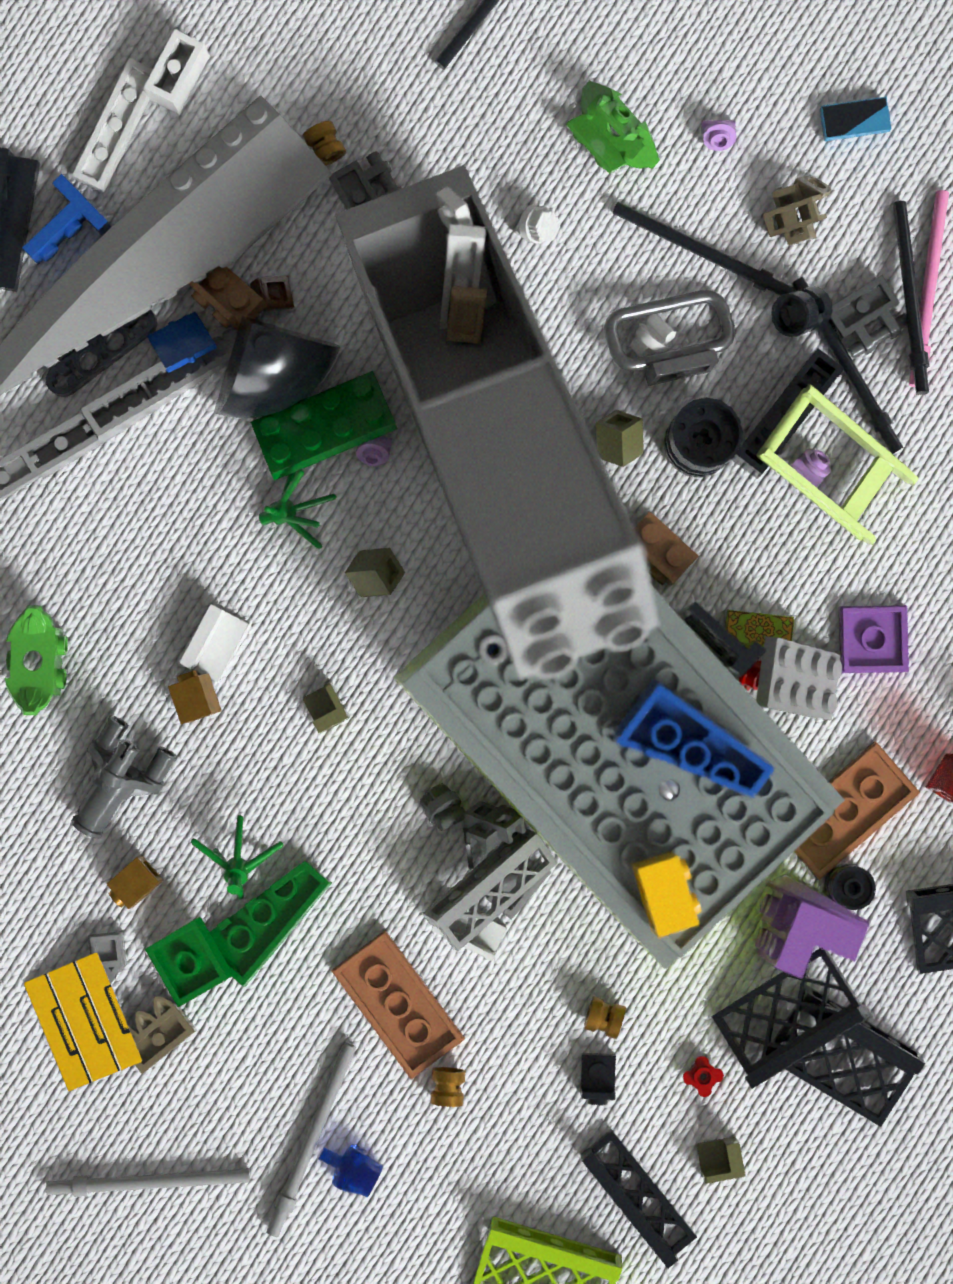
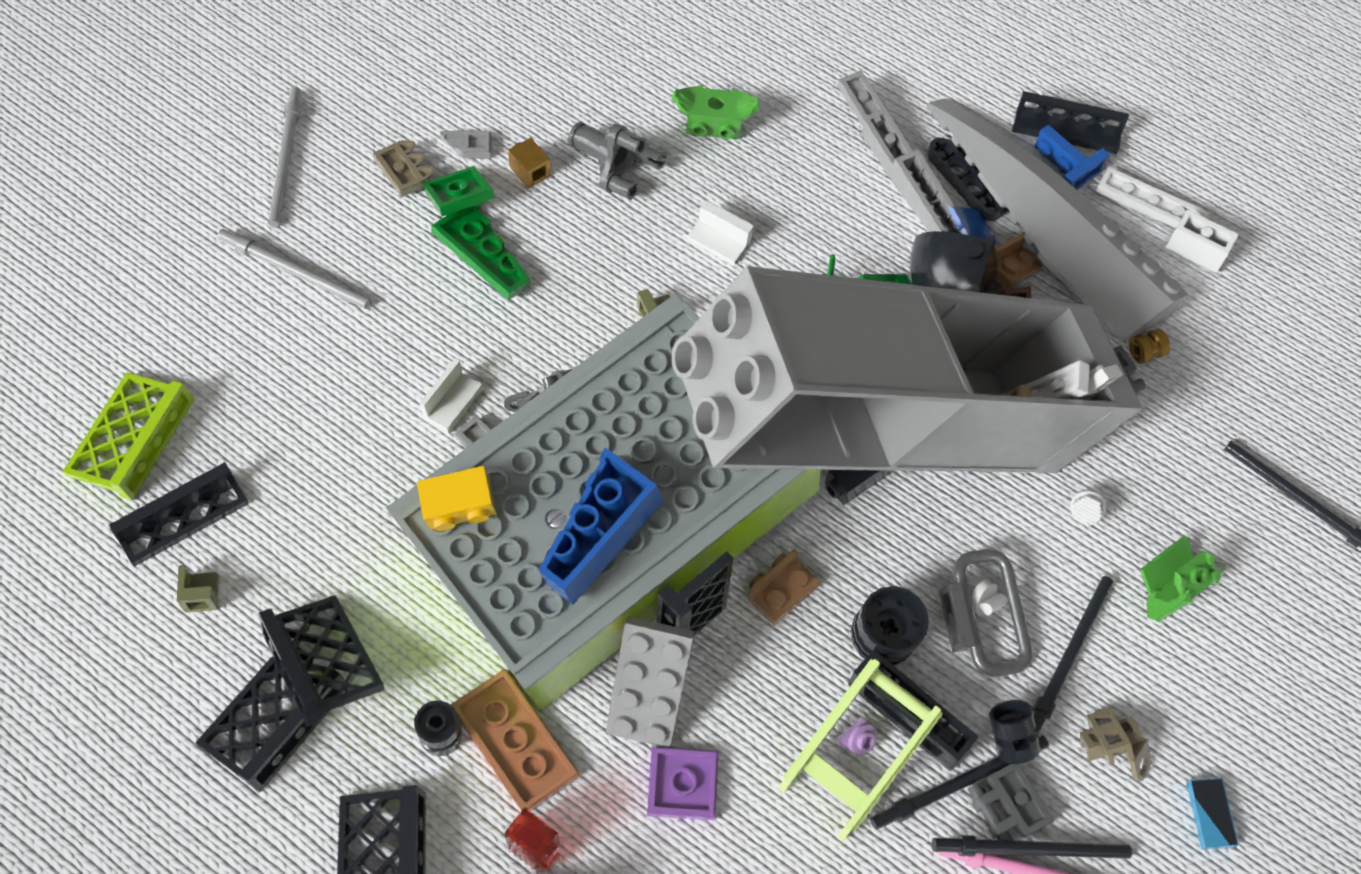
camera: 85 degrees right, 25 degrees down
(83, 1022) = (422, 122): yellow sticker -> none
(194, 697) = (676, 213): pearl gold brick -> none
(236, 868) = (529, 220): green plant -> none
(355, 1170) = (260, 296): clear blue piece -> none
(398, 1004) = (395, 342): nougat tile -> none
(447, 1087) = (315, 369): pearl gold wheel -> none
(482, 879) = (481, 385): light grey fence -> none
(597, 1015) = (352, 499): pearl gold wheel -> none
(598, 1078) = (297, 492): black bracket -> none
(620, 438) = (889, 561): olive panel -> none
(693, 1078) = (282, 590): red plate -> none
(719, 134) = (1185, 678): lavender plate -> none
(755, 626) = (701, 673): tile -> none
(805, 919) = (407, 656): medium lavender piece -> none

